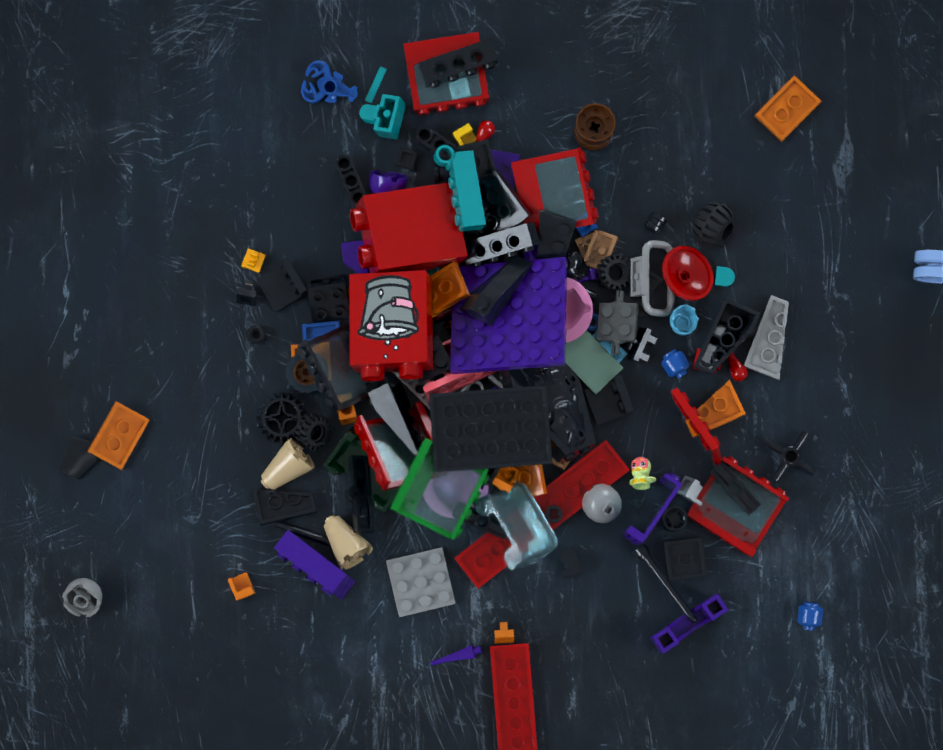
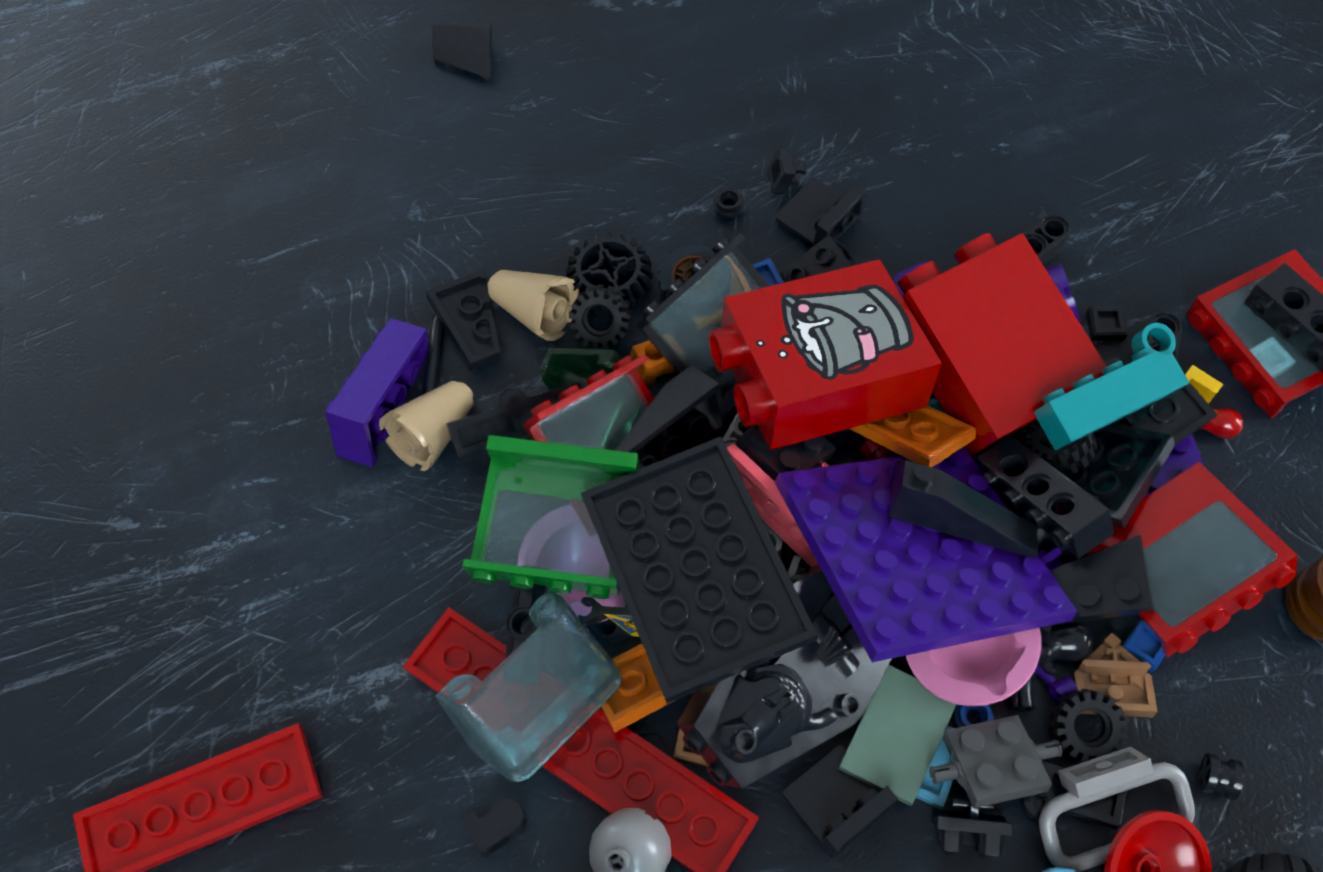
camera: 75 degrees right, 20 degrees down
(82, 597) = (255, 102): light grey cylinder -> none
(118, 435) = (511, 81): orange tile -> none
(241, 586) = (319, 300): orange panel -> none
(253, 260) = (841, 168): light orange tile -> none
(327, 85) = (1162, 178): blue animal -> none
(379, 76) = (1199, 246): teal piece -> none
(385, 116) = (1163, 266): teal brick -> none
(420, 582) = (394, 569): light grey plate -> none
(466, 653) = (278, 686): dark purple piece -> none
(504, 635) = (328, 742): orange tile -> none
(505, 478) = (616, 638): orange plate -> none
(547, 514) = (583, 770): black bush -> none

